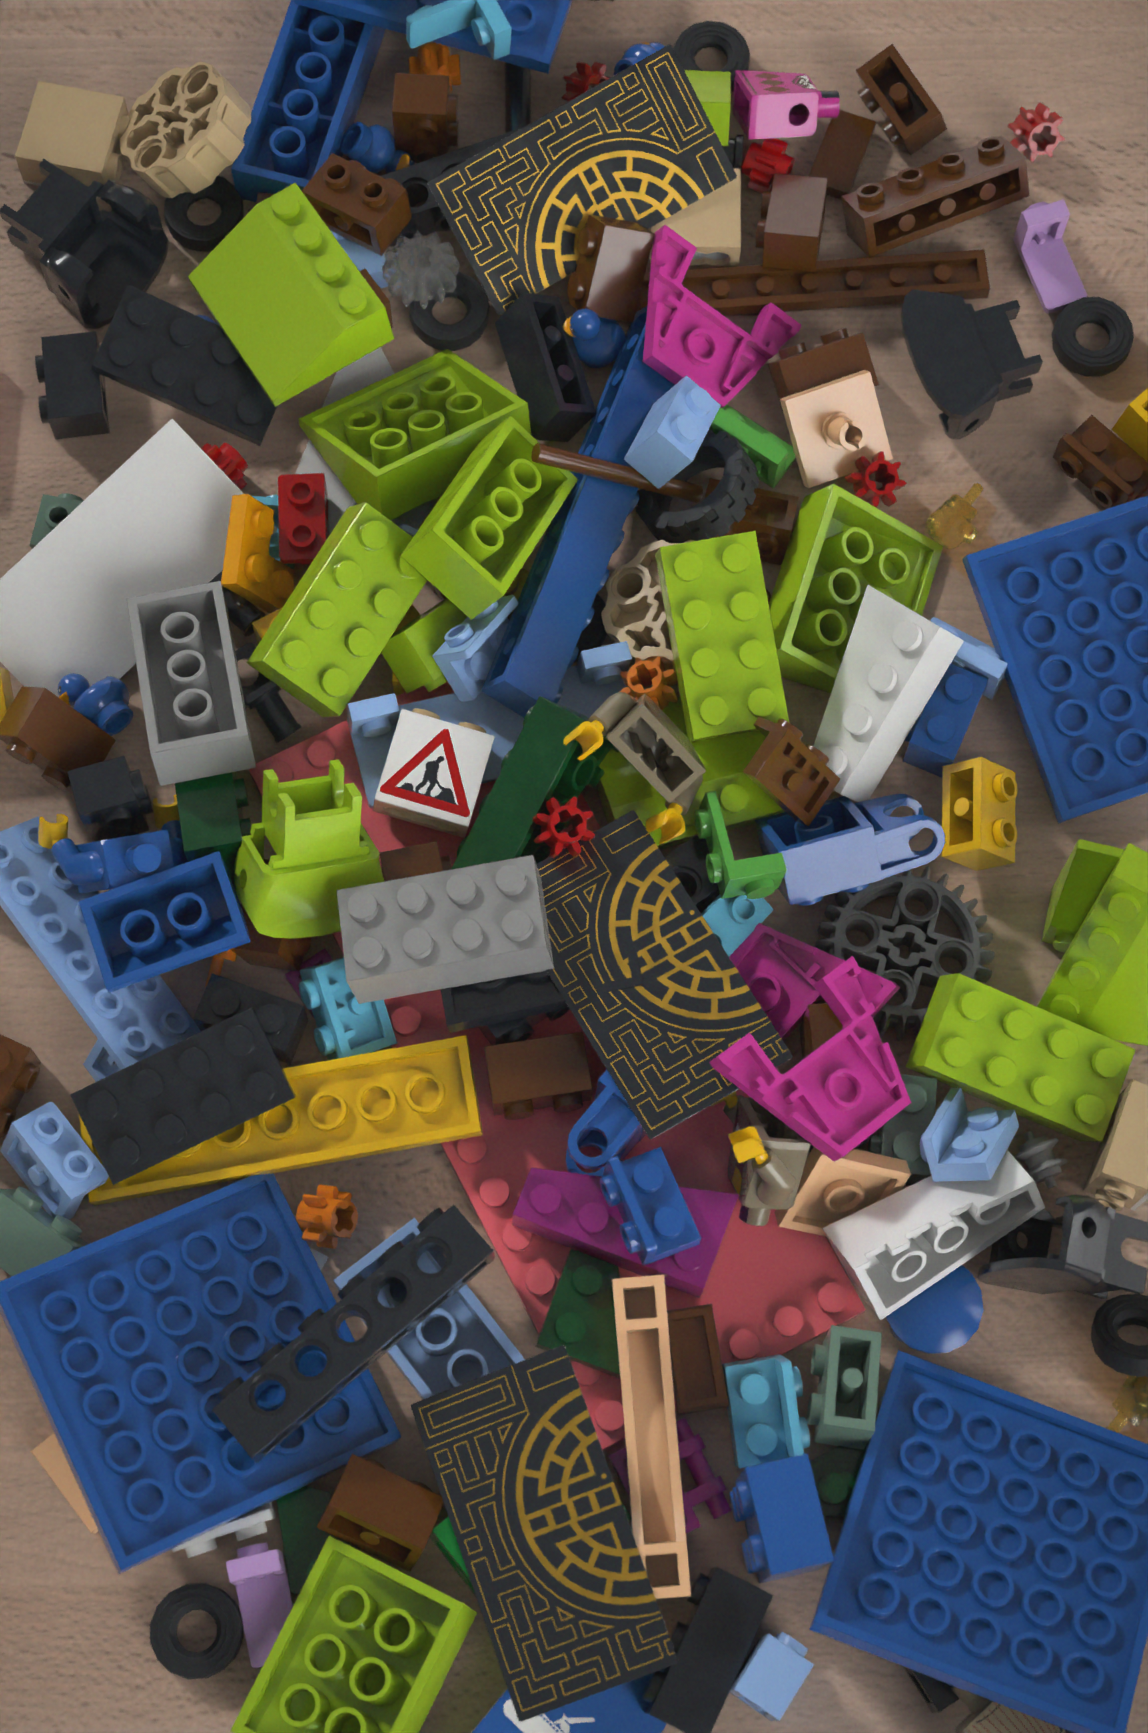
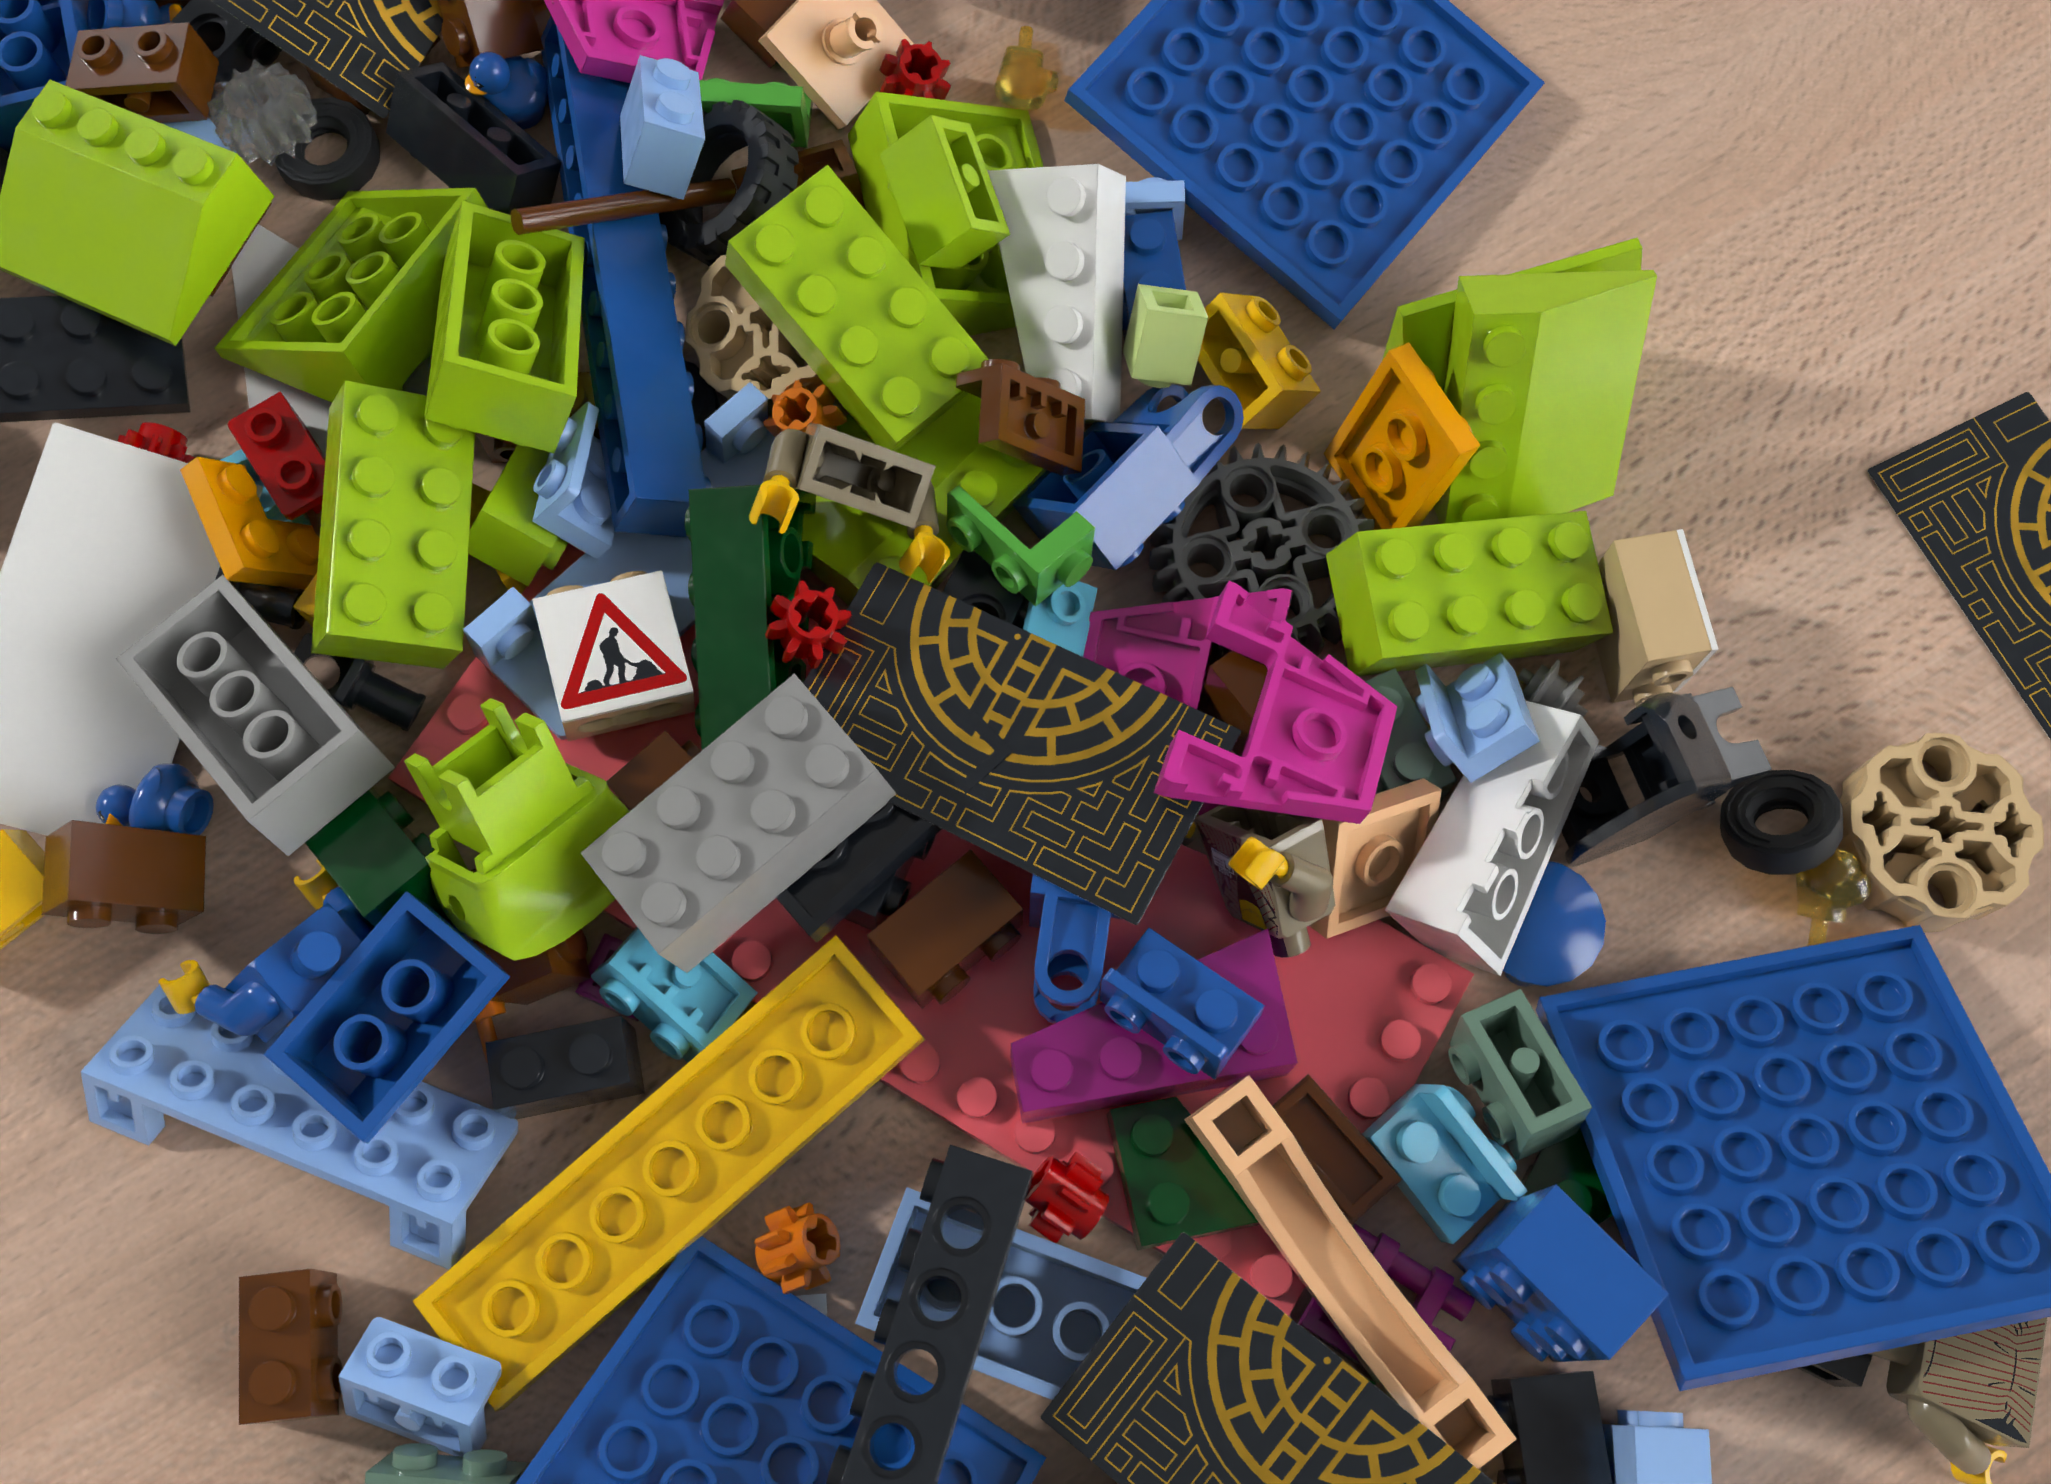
camera: 30 degrees left, 0 degrees up
(111, 799) = (235, 906): black brick -> none
(183, 1095) = (535, 1213): black plate -> none
(509, 1285) = (1066, 1197): none -> red gear
(831, 585) = (944, 193): none -> lime brick
(924, 764) = (1164, 336): none -> yellowish green brick
(1035, 931) = (1401, 442): none -> light orange plate

